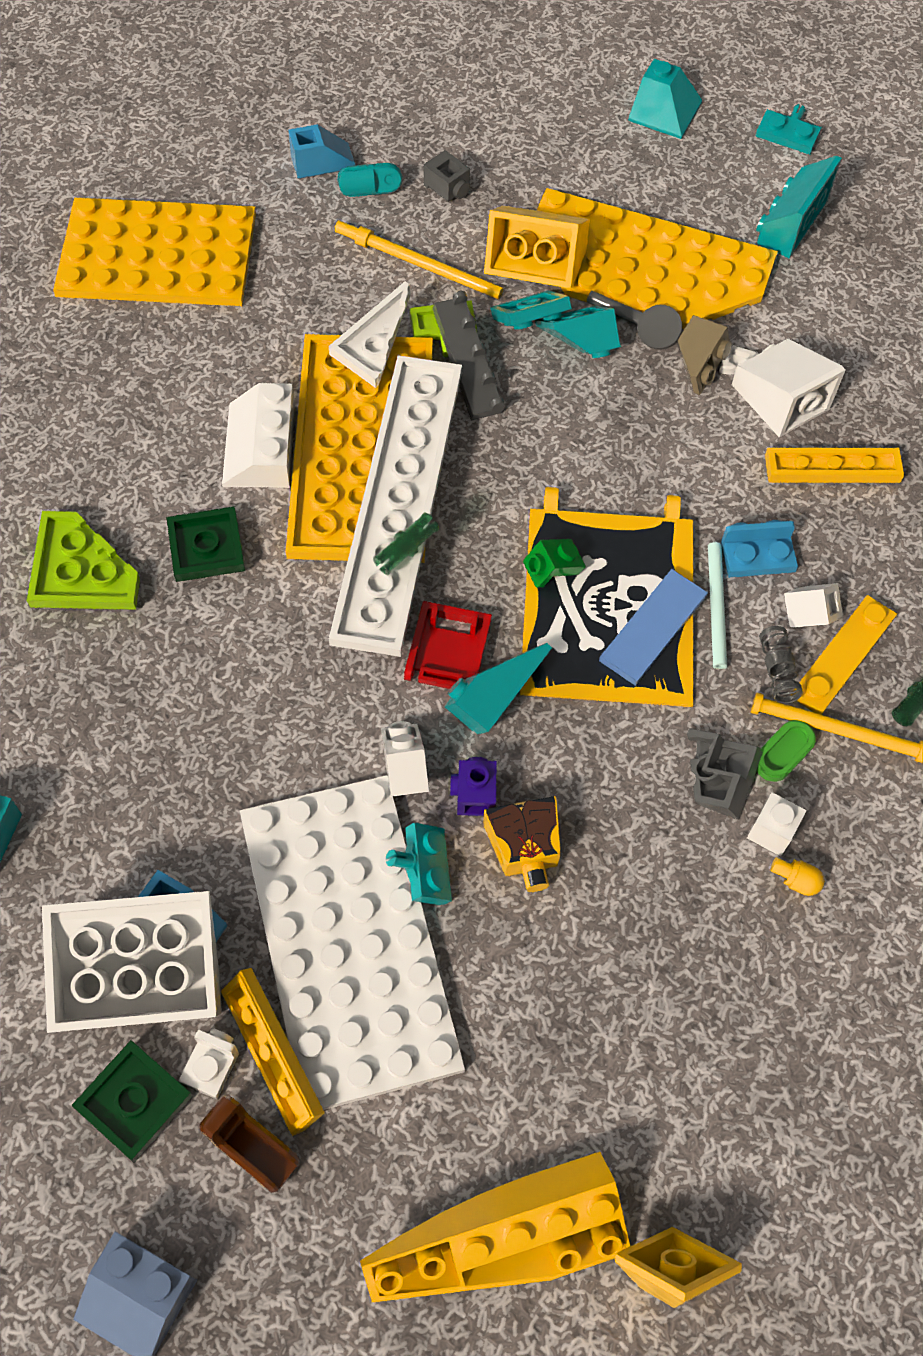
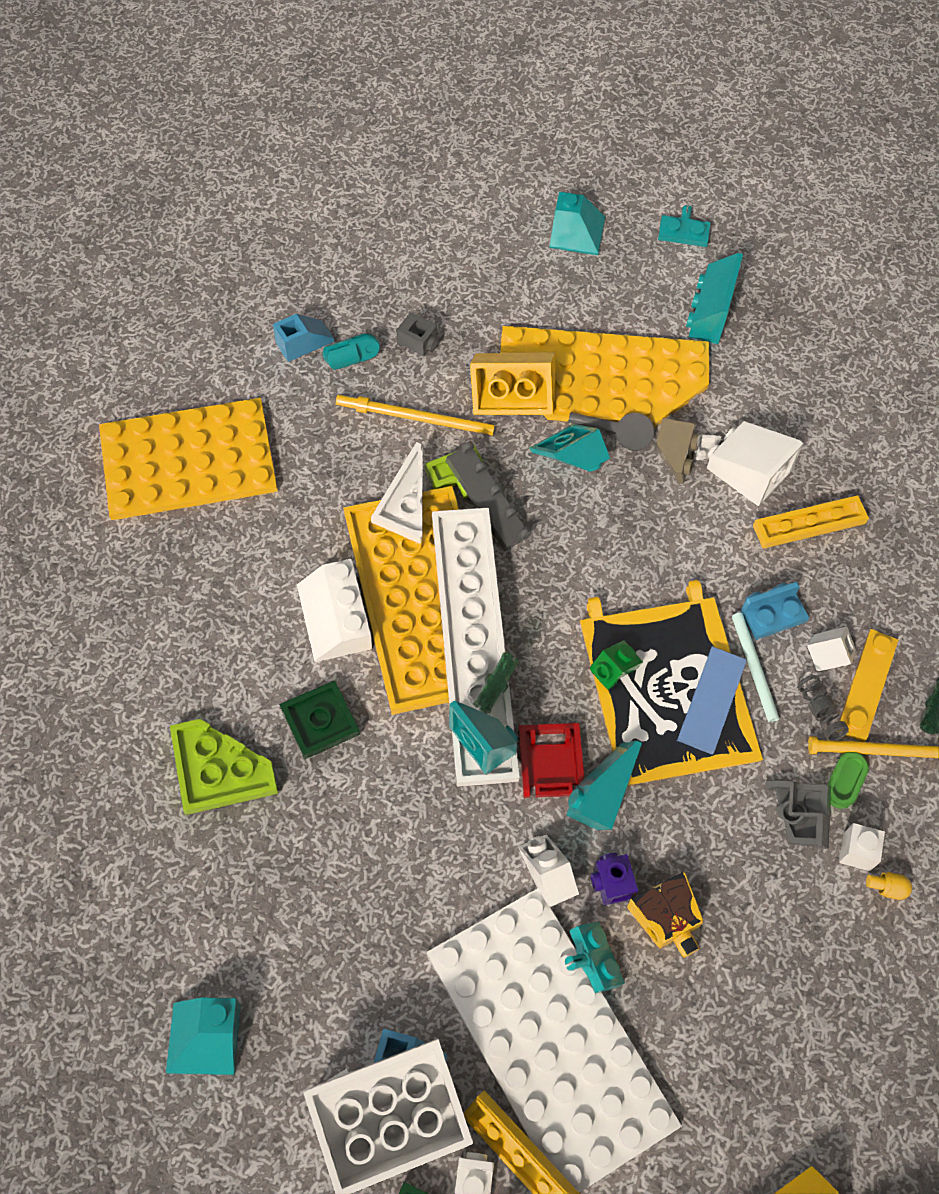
camera: 15 degrees left, 0 degrees up
(370, 592) = (482, 736): none -> teal slope
(524, 310) = (526, 441): teal plate -> none

